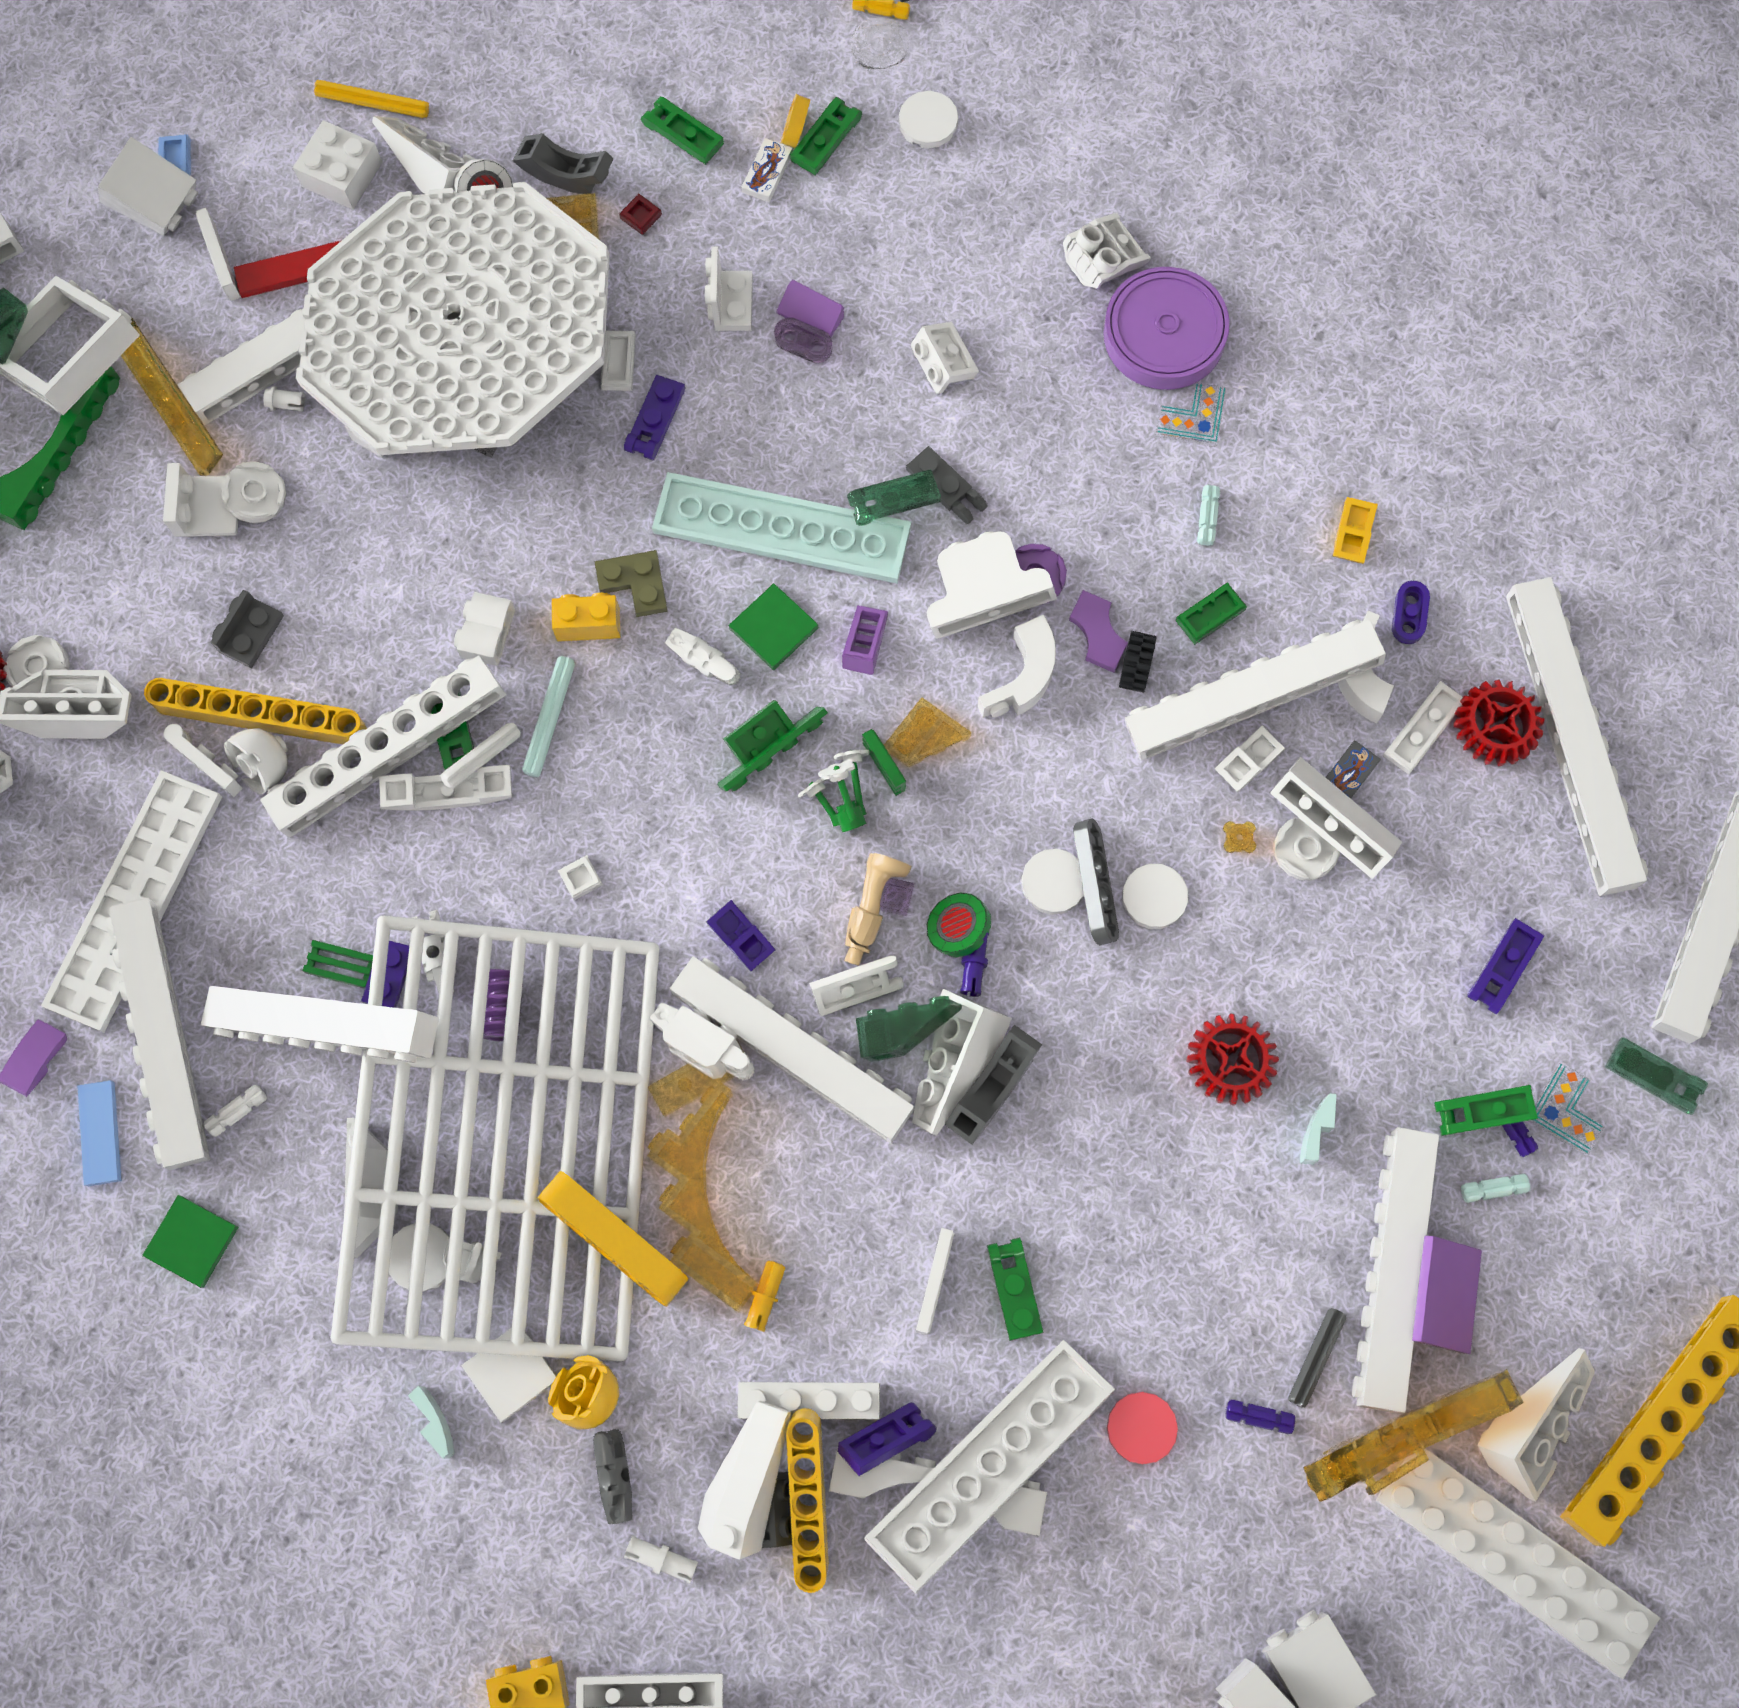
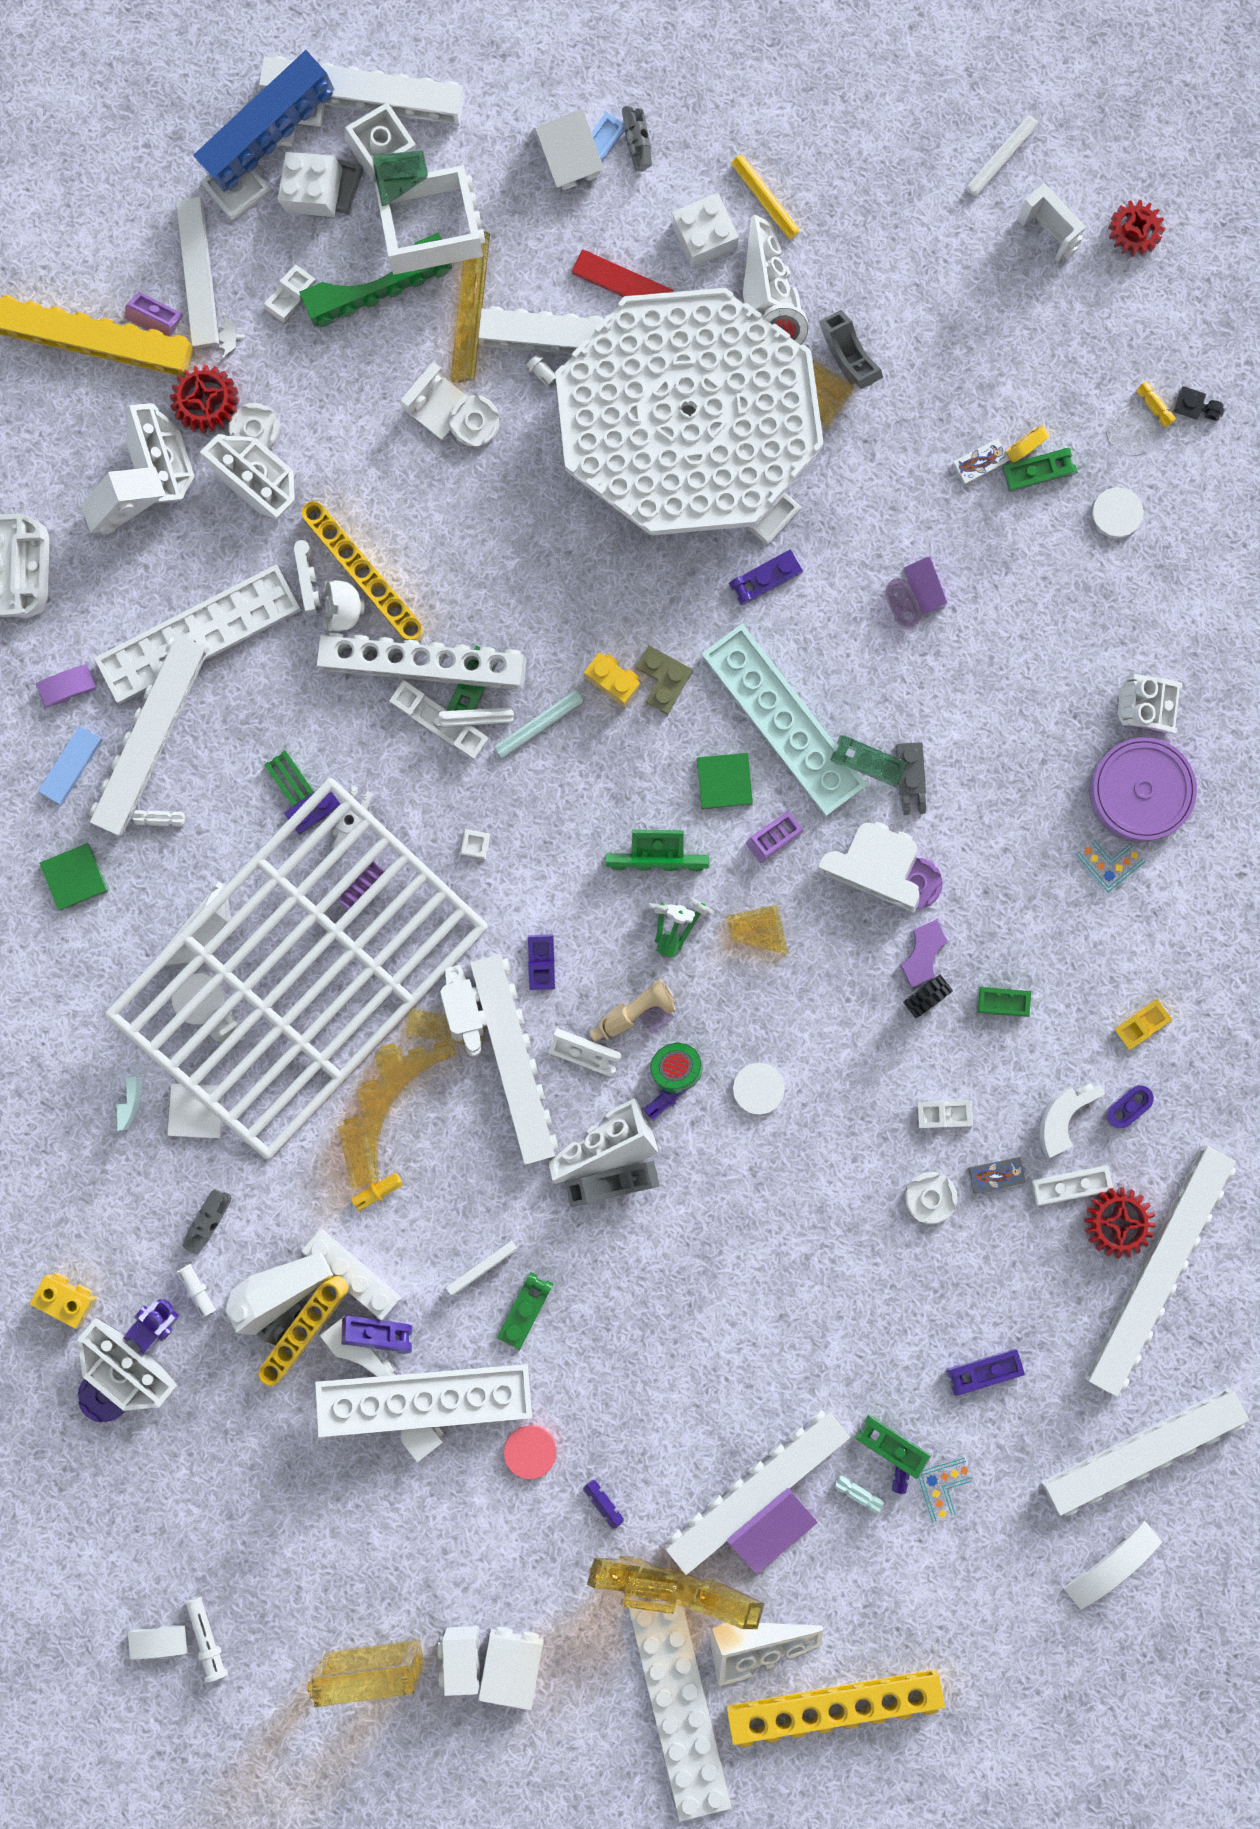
camera: 35 degrees right, 10 degrees up
(206, 136) = (637, 137): none -> dark grey hinge
(217, 254) = (578, 232): white tile -> none
(246, 629) = (399, 511): dark grey bracket -> none
(320, 1022) = (245, 815): white brick -> none
(485, 628) = (544, 634): white brick -> none
(584, 1393) = (226, 1161): yellow cylinder -> none
(613, 1238) = (315, 1085): yellow beam -> none
(640, 214) = (873, 425): dark red tile -> none
(644, 1631) = (152, 1325): none -> dark purple hinge
(683, 130) = (949, 388): green plate -> none
(702, 656) = (663, 764): white hinge -> none
(728, 296) = (882, 534): white bracket -> none
(884, 762) = (718, 927): green tile -> none
(897, 1032) = (583, 1103): clear green slope -> none
(943, 355) = (984, 689): white bracket -> none
(1039, 653) = (872, 939): white arch -> none
(1096, 882) = (782, 1111): dark grey beam -> none
(1155, 896) = (811, 1149): white tile -> none
(1208, 515) = (1059, 936): light aqua axle -> none
(1232, 844) = (887, 1157): clear yellow plate -> none
(1248, 1035) = (764, 1265): red gear -> none
(1255, 689) = (983, 1076): white brick -> none
(1317, 1357) = (666, 1499): dark grey axle -> none
(1321, 1121) = (791, 1368): light aqua slope -> none
(1336, 818) = (962, 1197): white brick -> none
(1655, 1075) = (1015, 1511): clear green plate -> none

